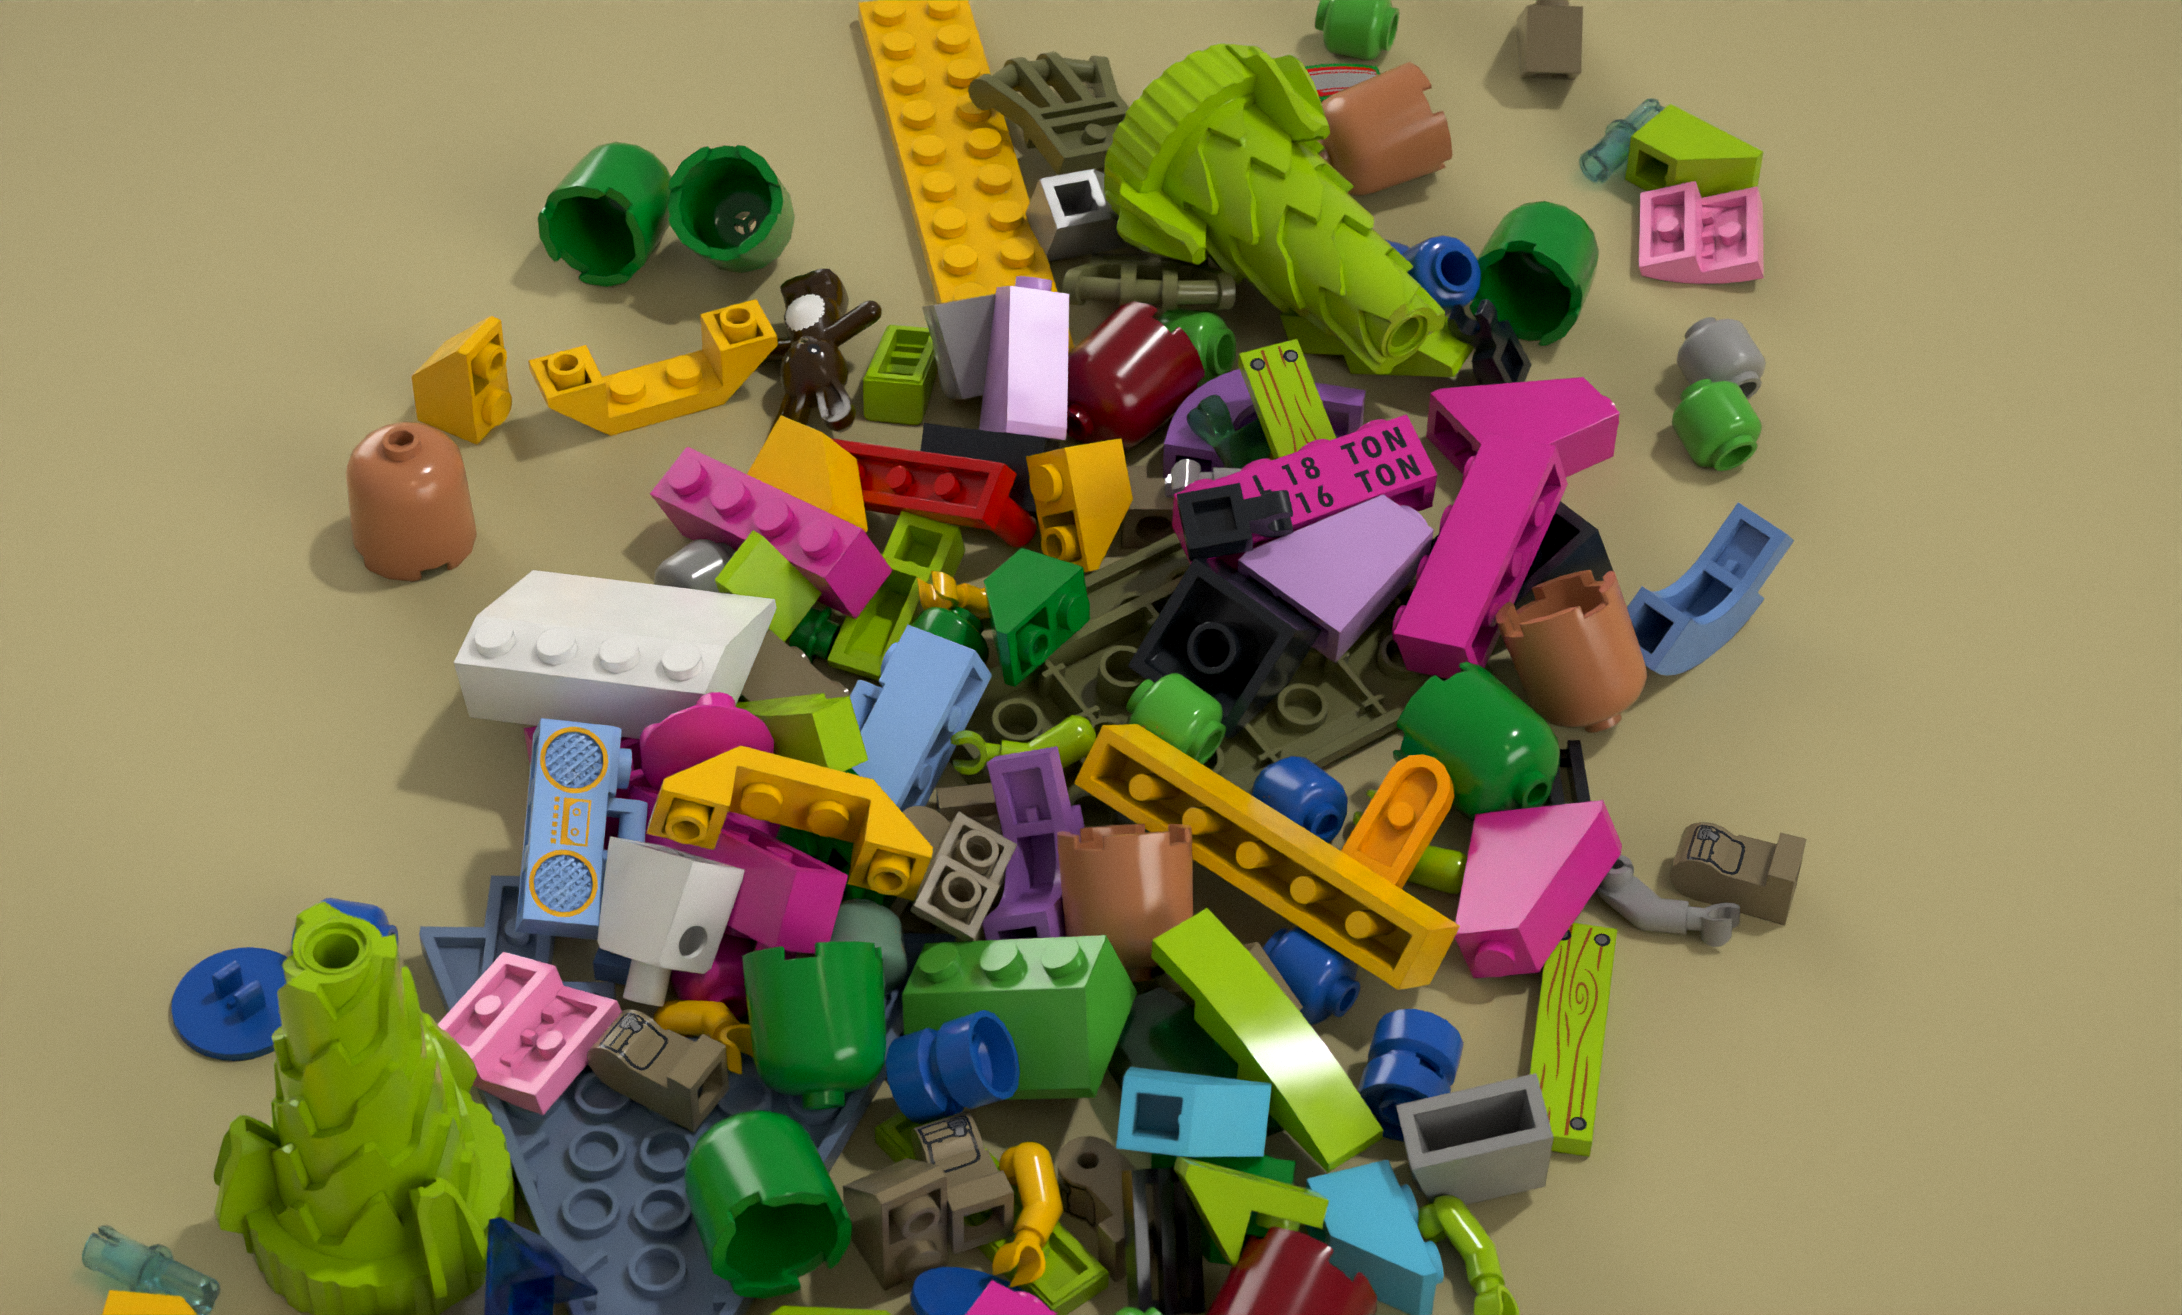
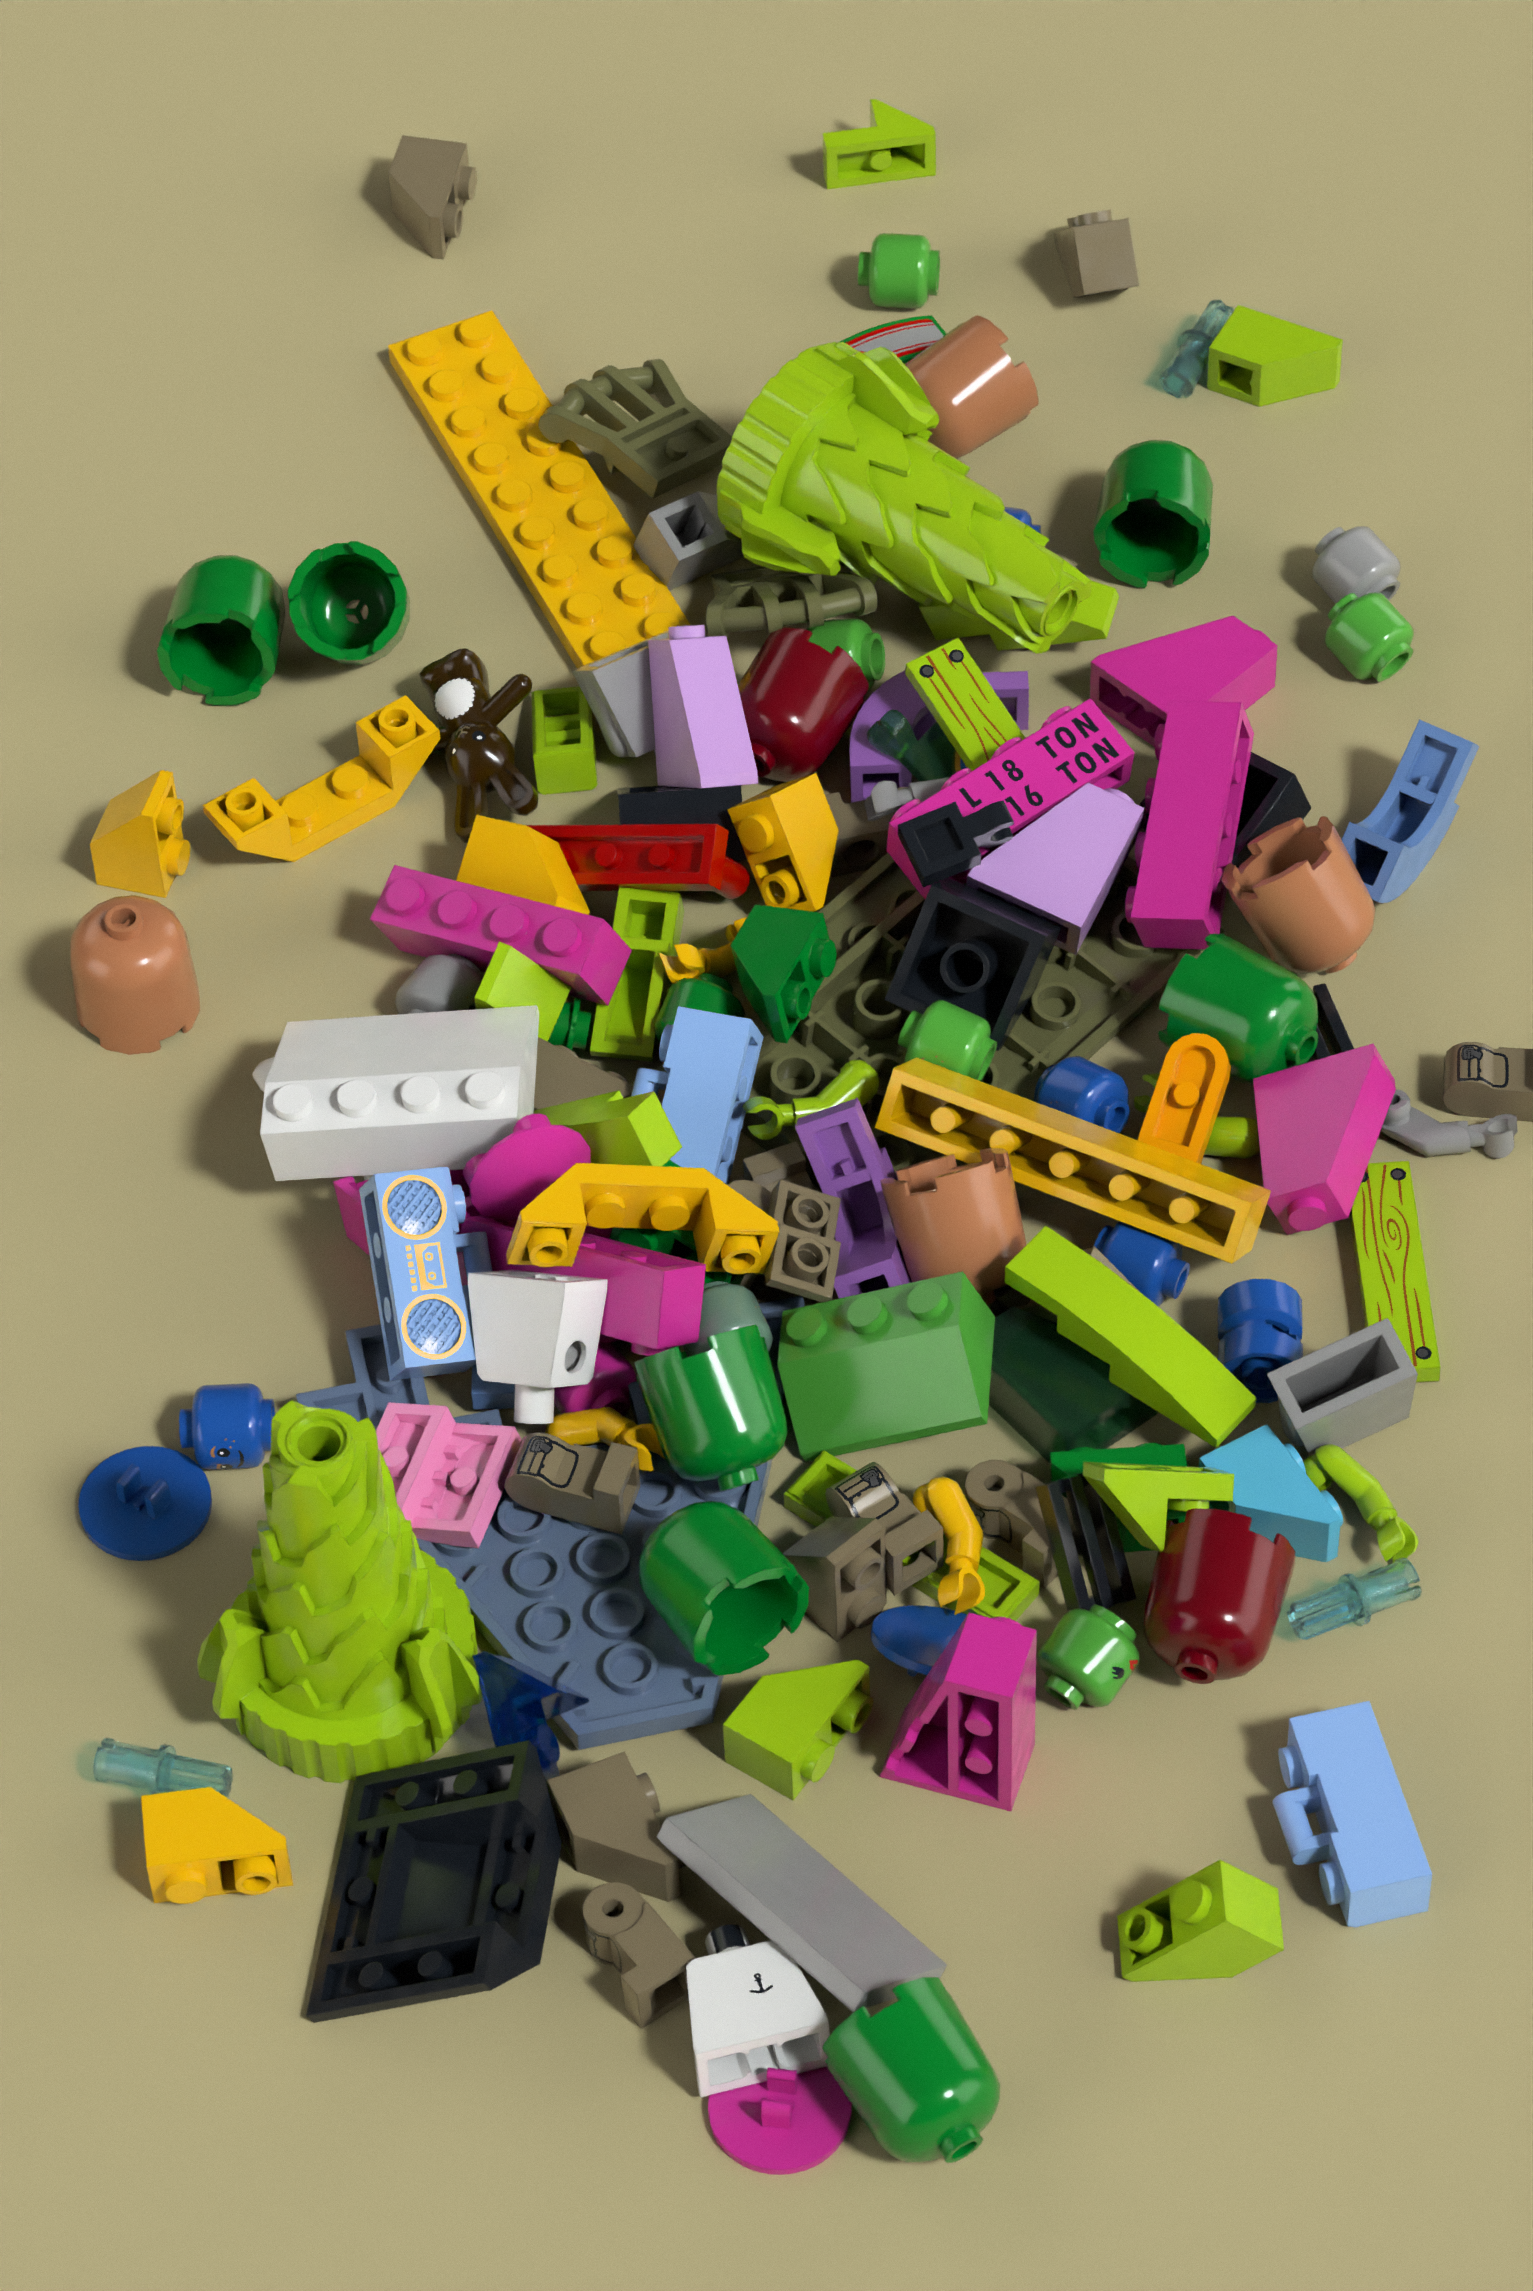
camera: 10 degrees left, 5 degrees up
(952, 1068) = (852, 1422): blue wheel -> none
(1192, 1114) = (1084, 1421): medium azure slope -> none
(1445, 270) = (1074, 532): blue head -> none
(1498, 351) = (1141, 605): black plate -> none
(1701, 238) = (1299, 437): bright pink slope -> none

